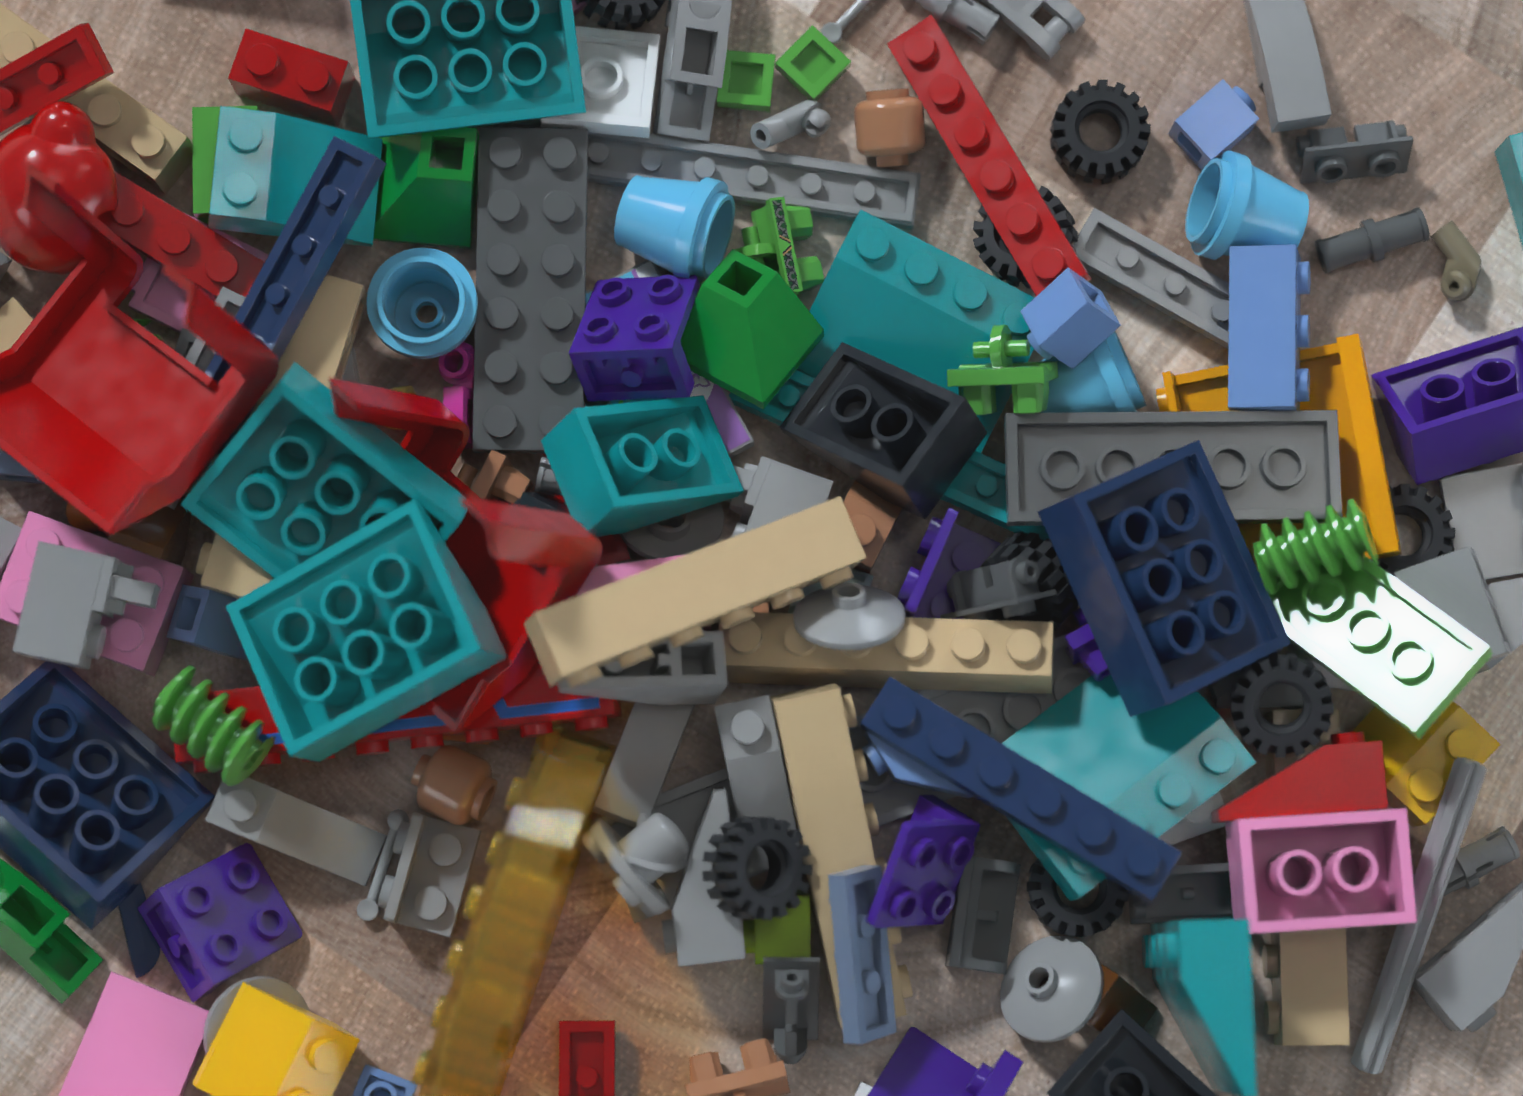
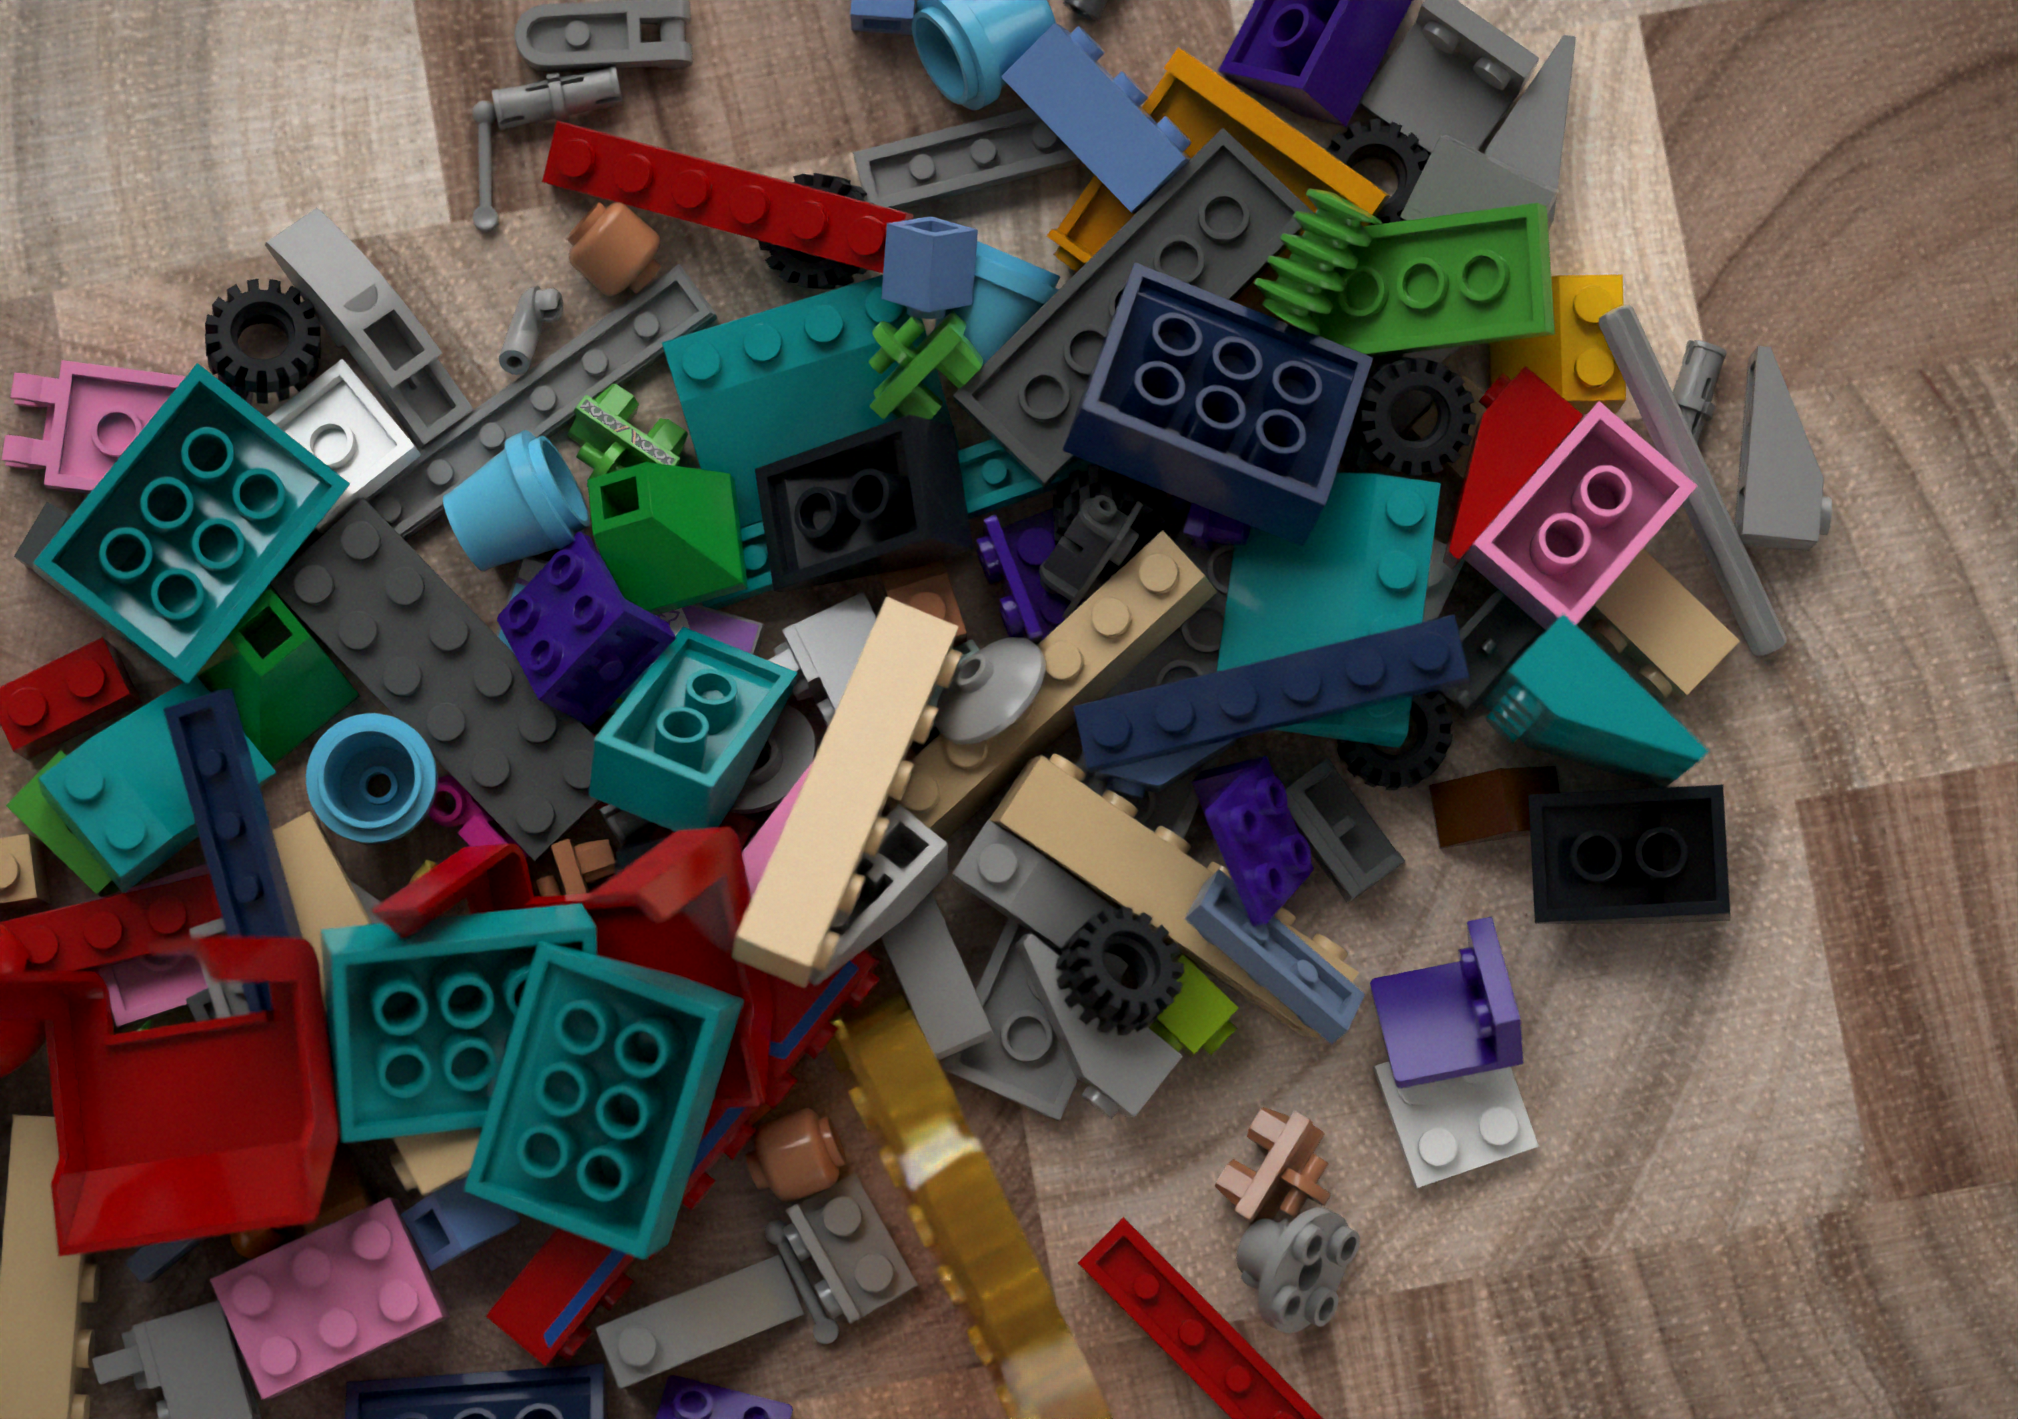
camera: 45 degrees left, 0 degrees up
(67, 601) = (323, 1316): light grey hinge -> none
(210, 729) = (549, 1305): bright green piece -> none
(640, 858) = (1015, 1057): light grey plate -> none
(747, 81) = (456, 326): bright green plate -> none
(790, 1004) = (1255, 1059): dark grey hinge -> none
(812, 64) = (496, 259): bright green plate -> none
(1066, 998) = (1476, 834): light grey dish -> none
(1109, 101) = (786, 47): black tyre -> none

